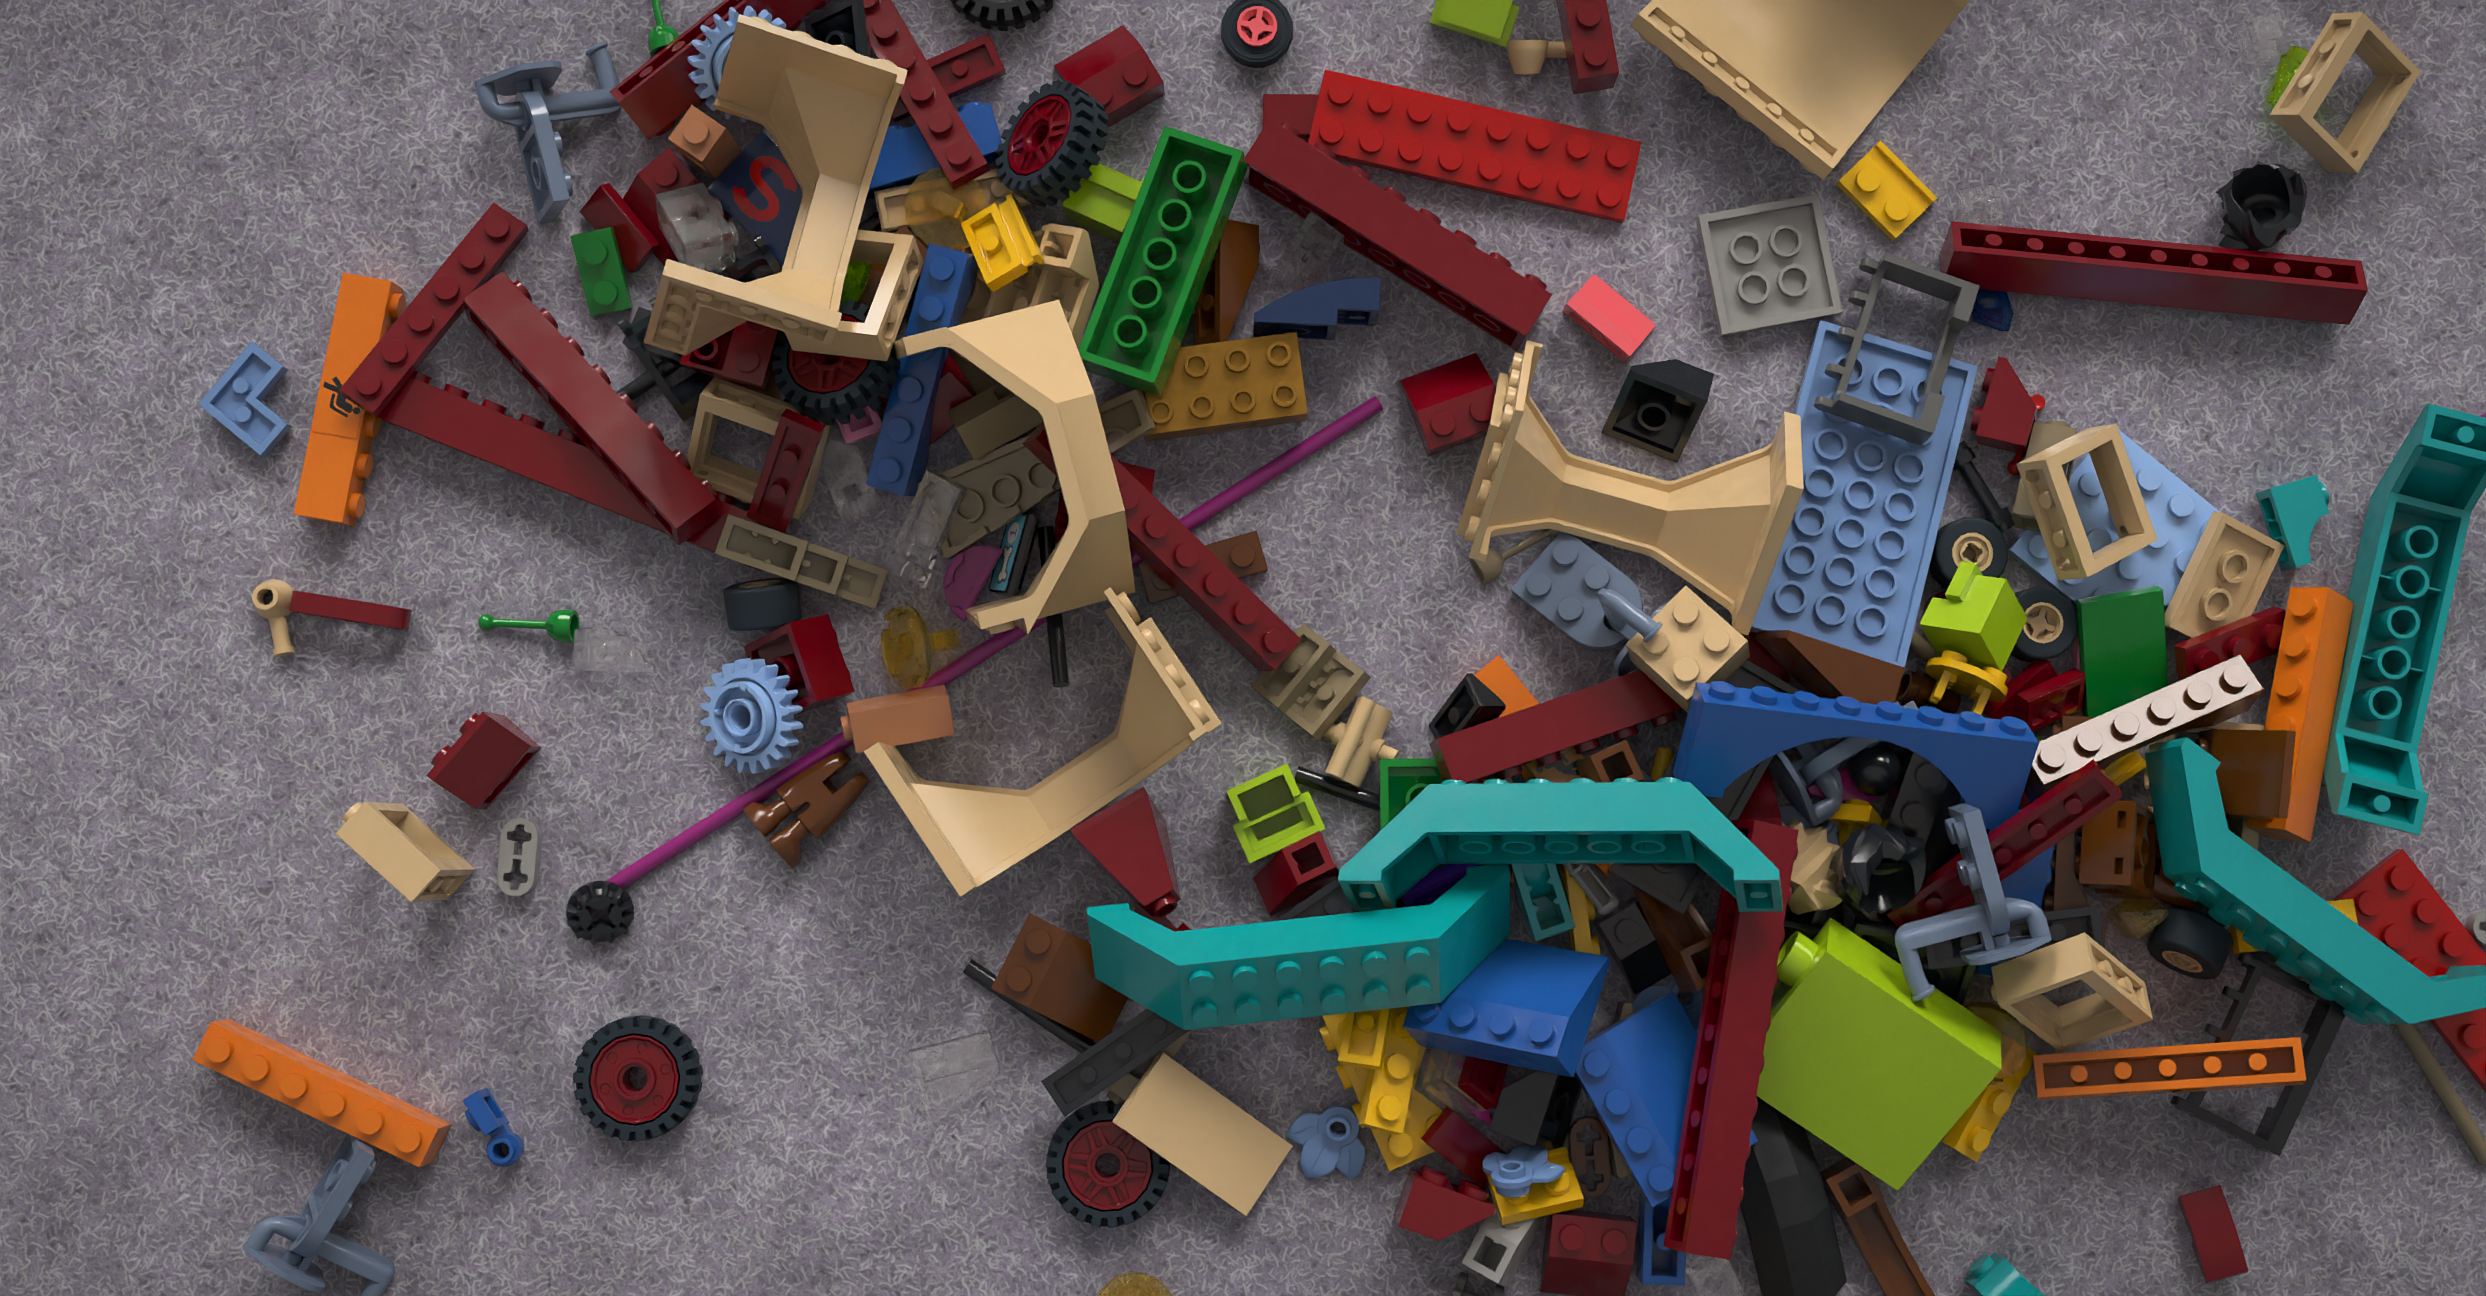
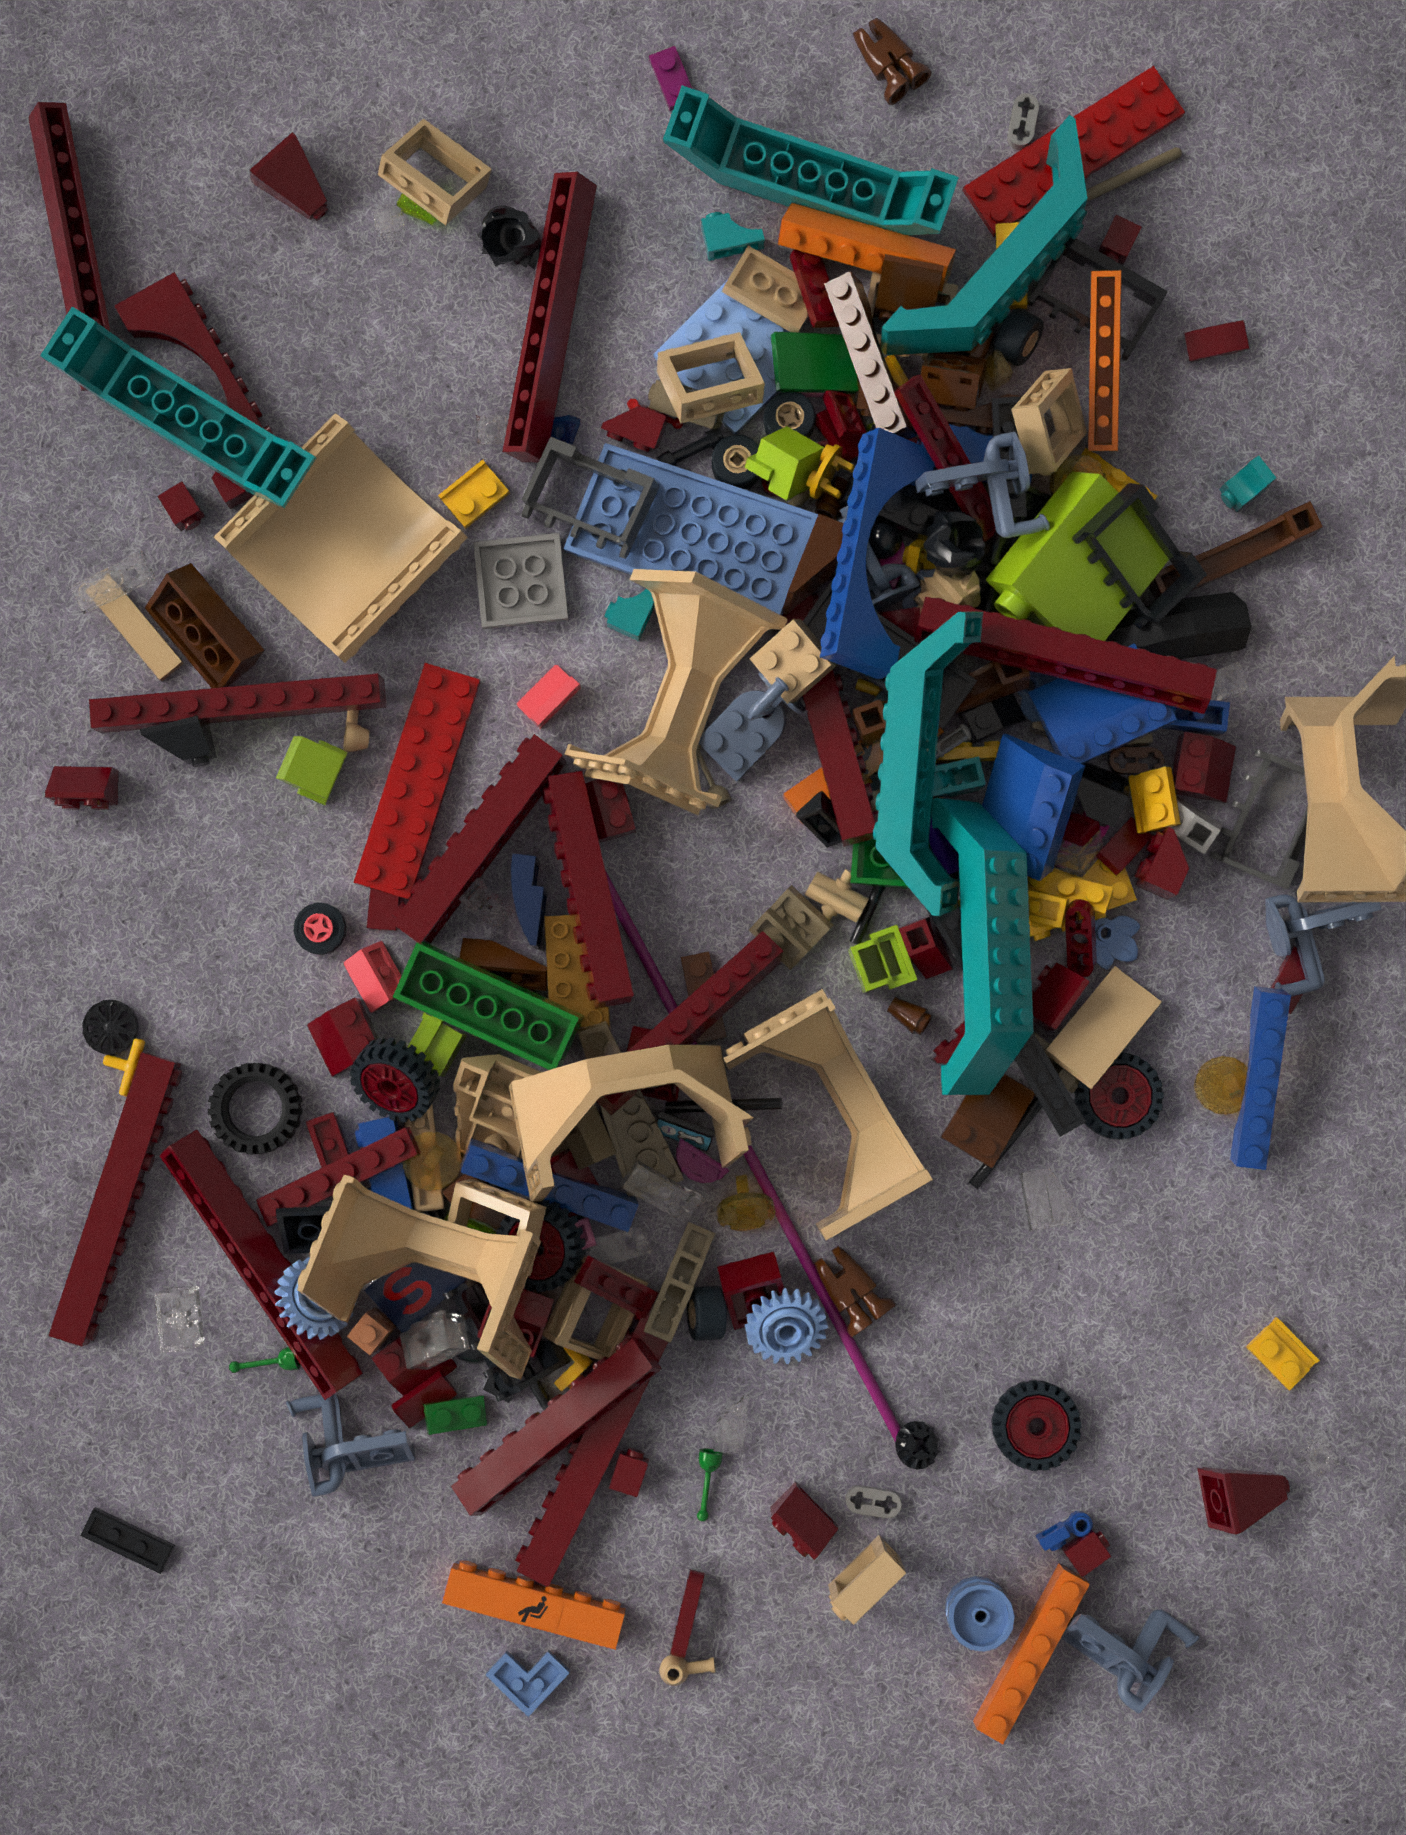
camera: 80 degrees left, 0 degrees up
(366, 1038) = (988, 1629): none -> medium blue wheel
(433, 310) = (474, 1538): dark red plate -> none
(466, 1162) = (1087, 1552): none -> dark red brick
(537, 515) = (629, 1472): none -> dark red brick
(668, 426) = (580, 1363): none -> yellow plate
(898, 718) = (796, 1221): nougat brick -> none
(1002, 242) = (463, 1121): yellow plate -> none
(1134, 851) = (904, 1059): dark red slope -> none
(1199, 859) = (910, 1015): none -> reddish brown cone
(1200, 108) = (374, 975): none -> coral panel
(1243, 1061) = (1055, 995): none -> dark red slope
(1338, 387) = (588, 890): none -> dark red brick
(1340, 1100) = (1087, 929): none -> dark red beam
(1519, 1169) = (1143, 809): medium blue plate -> none
(1659, 406) = (616, 665): black slope -> none
(1735, 422) = (630, 614): none -> teal arch
(1883, 1204) = (1184, 562): none -> black hinge
(2349, 1081) = (1119, 239): none -> dark red brick

